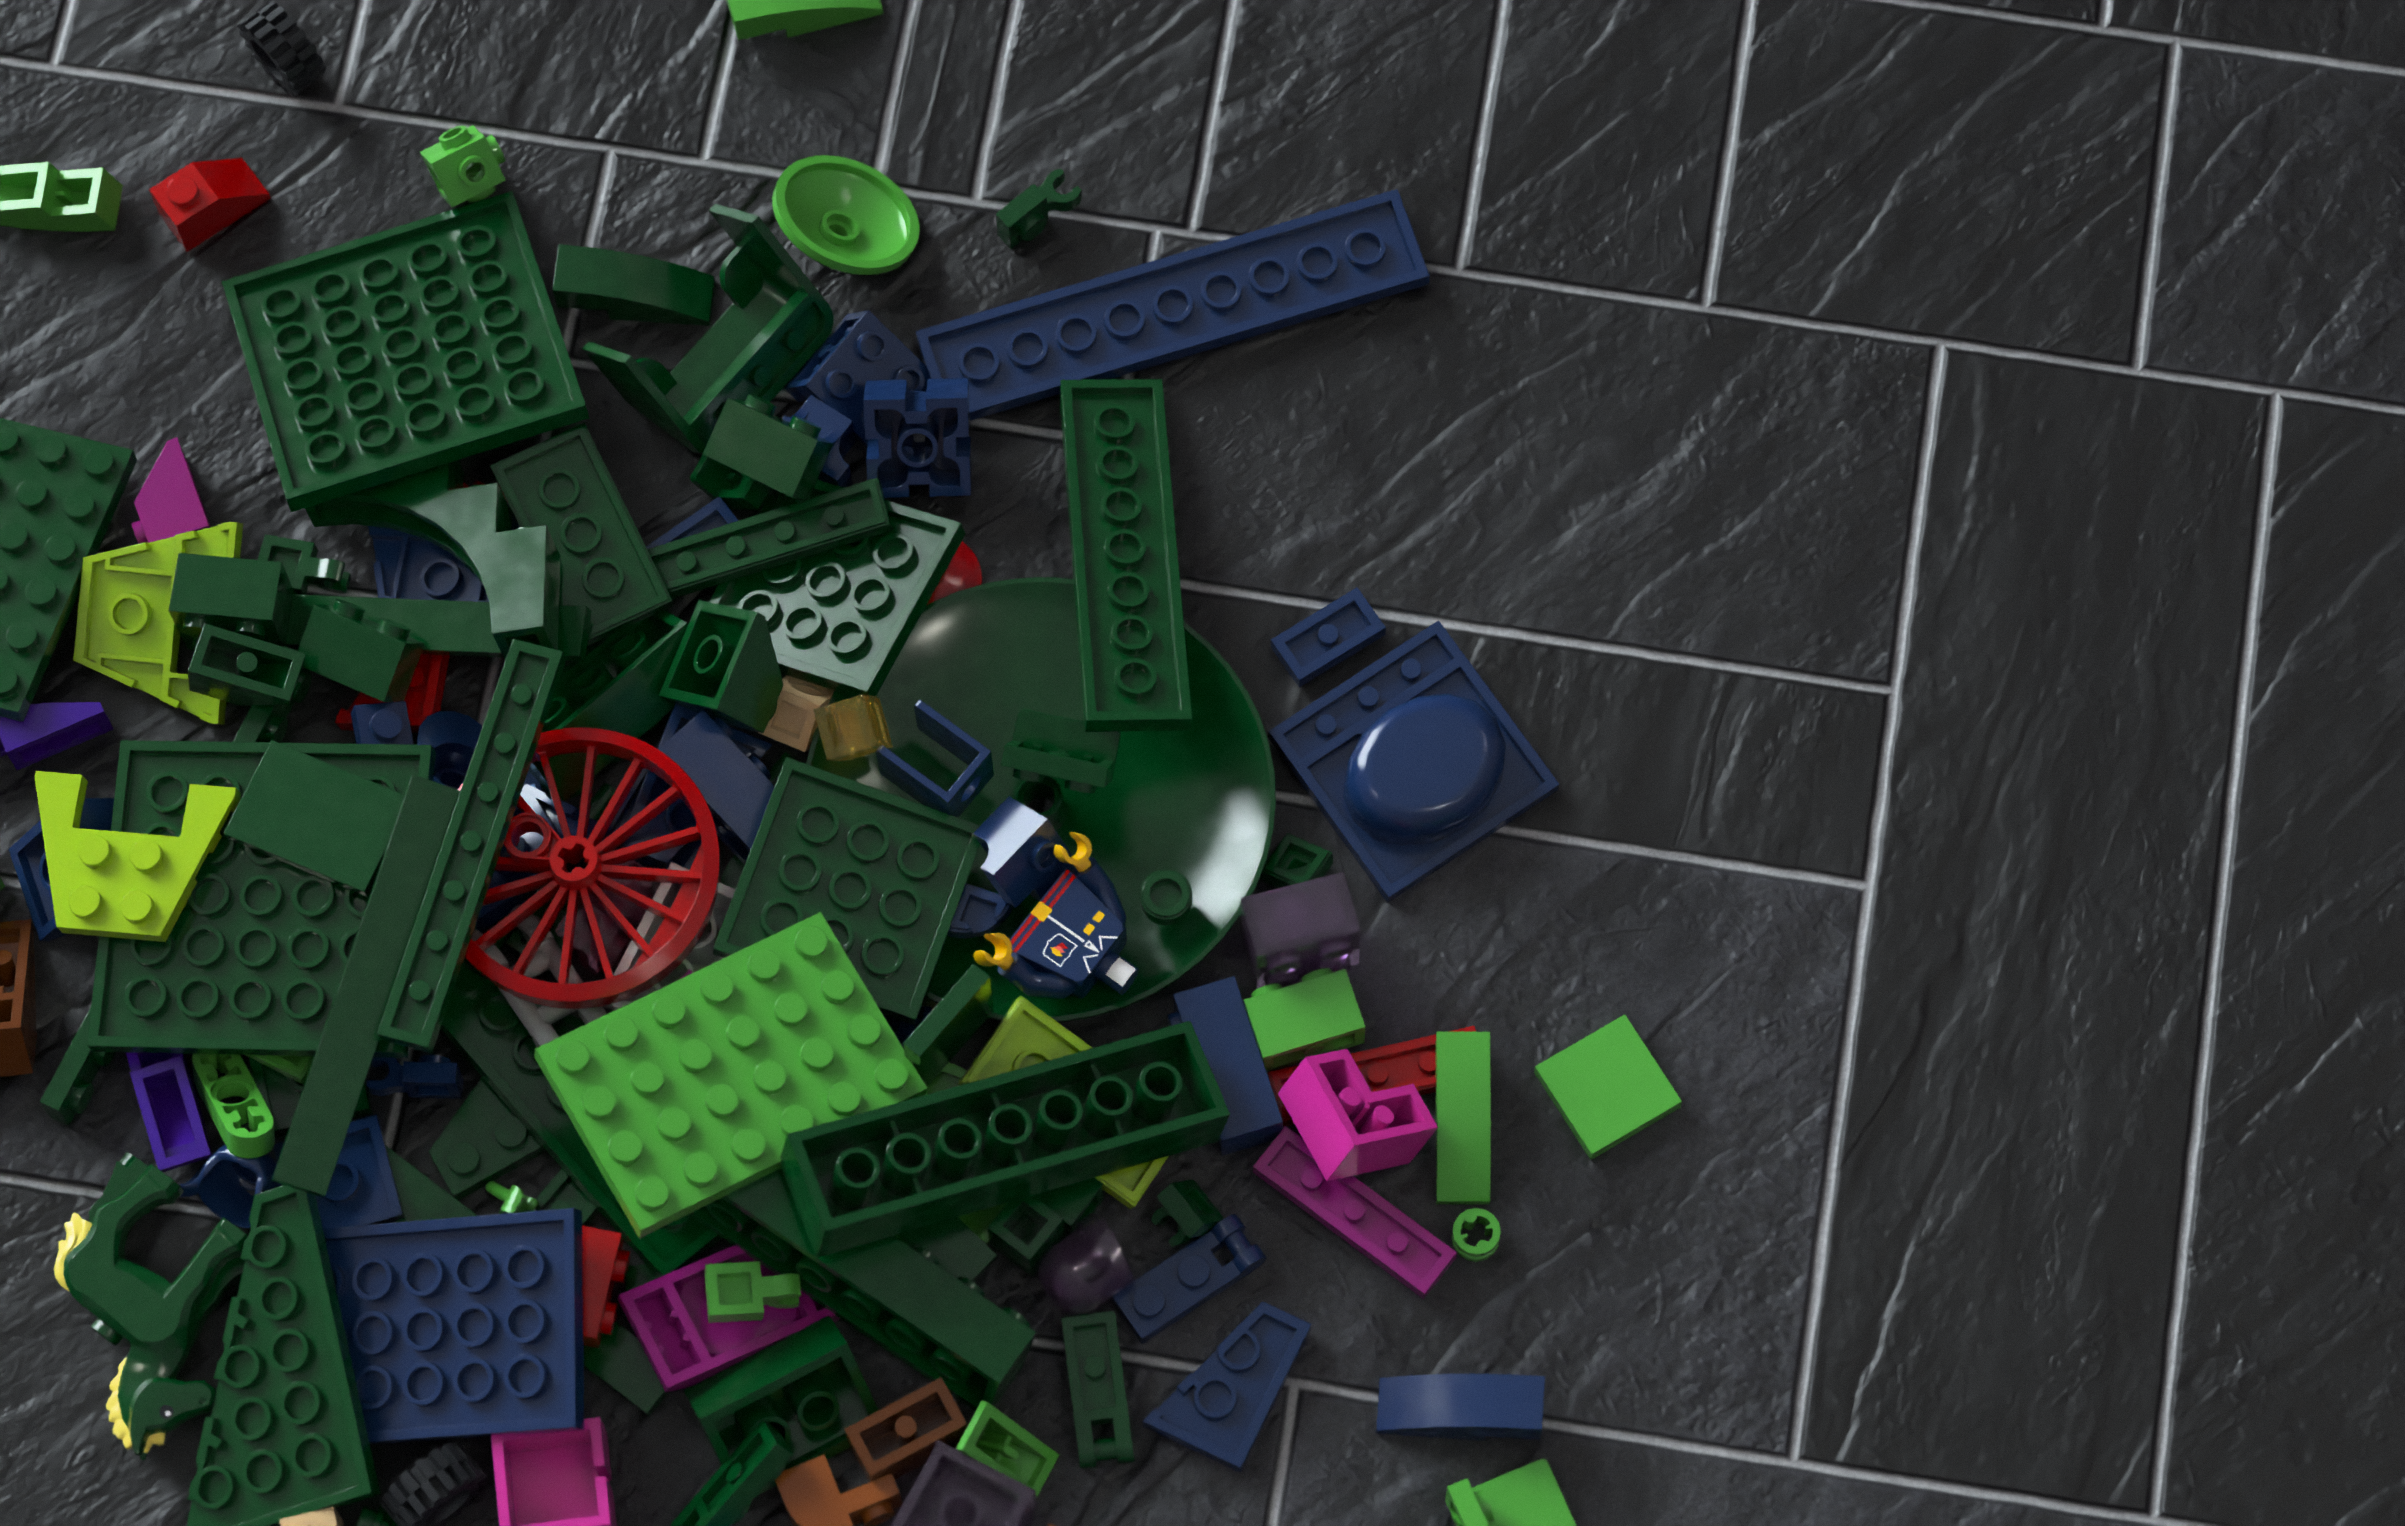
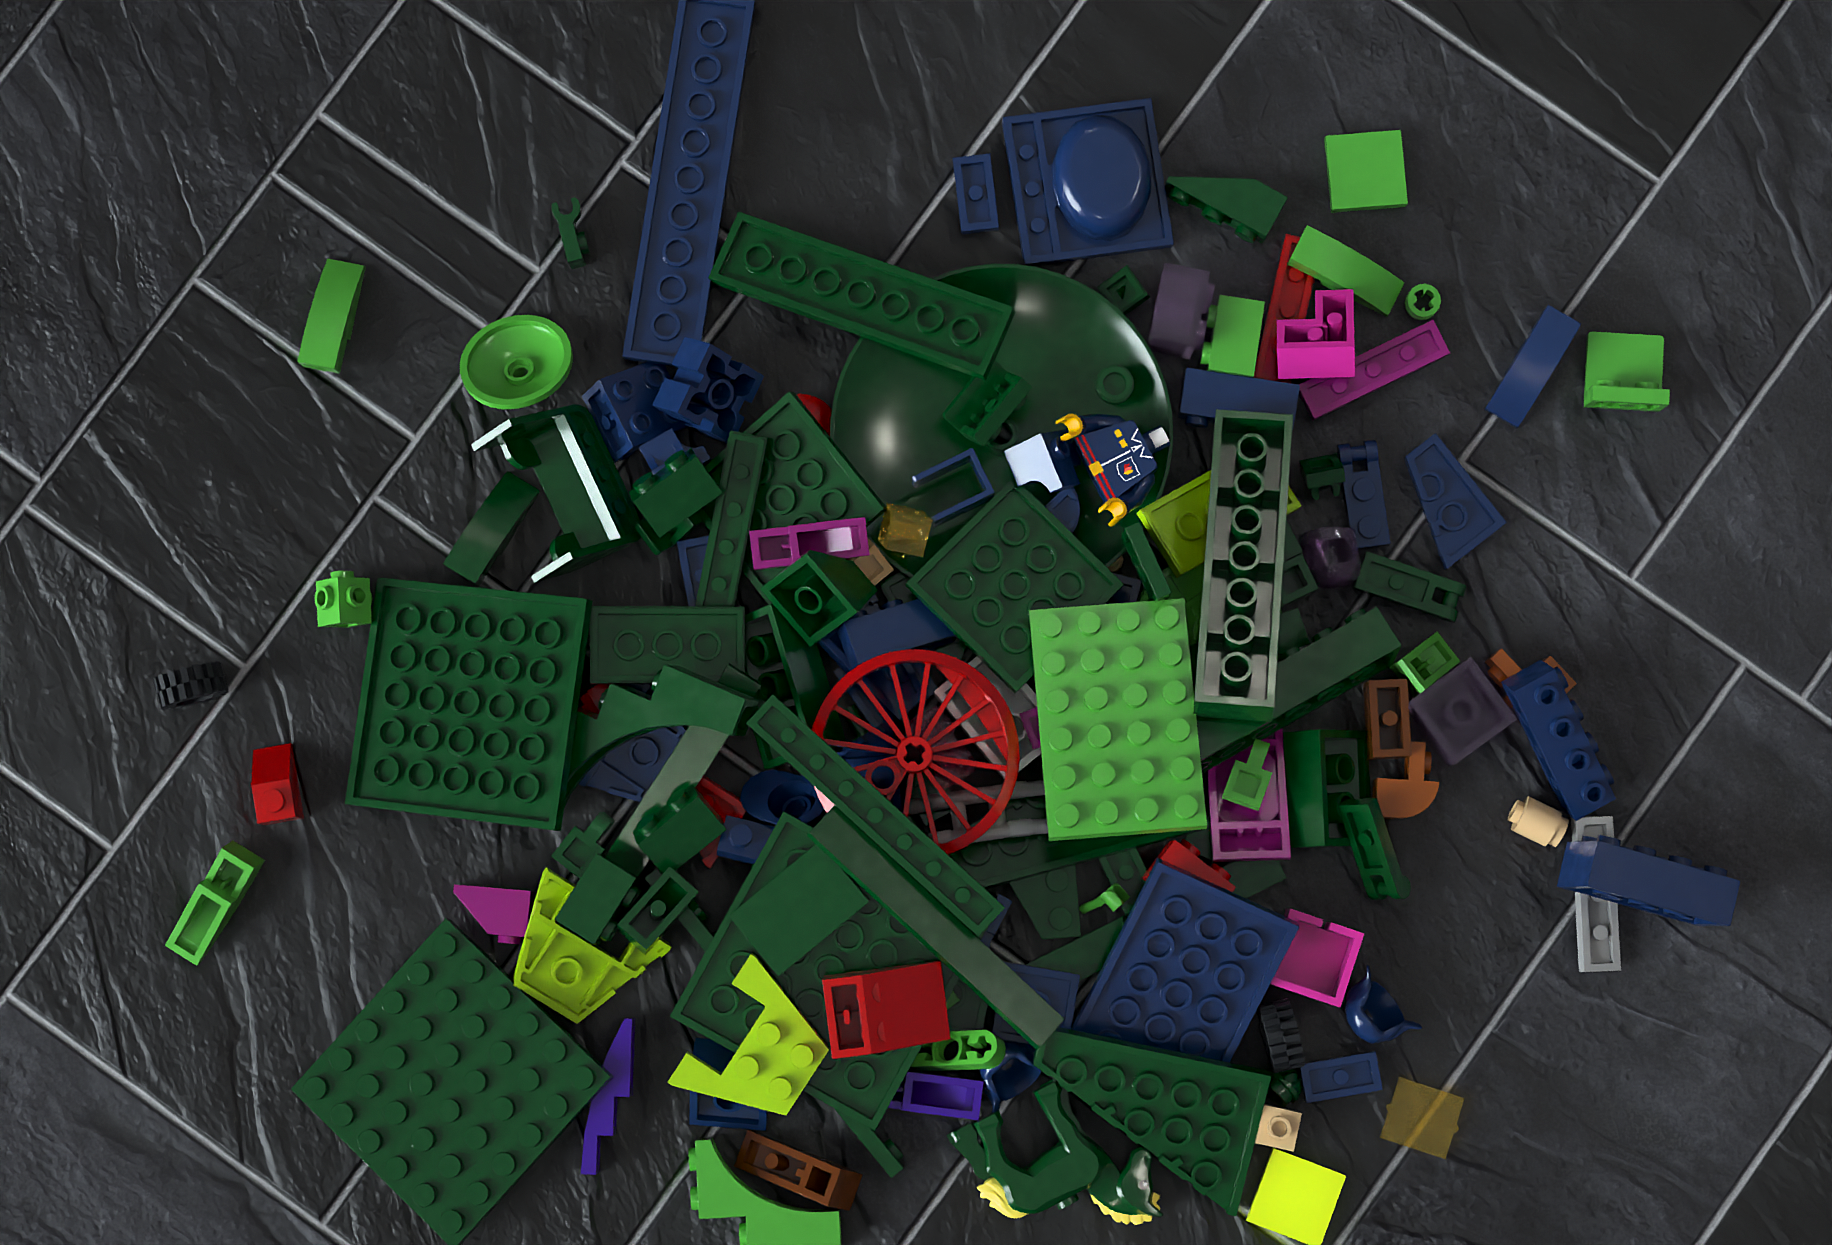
camera: 60 degrees left, 15 degrees up
(237, 971) = (885, 1009): none -> red slope
(799, 649) = (786, 544): none -> magenta slope
(1482, 946) = (1237, 202): none -> dark green slope

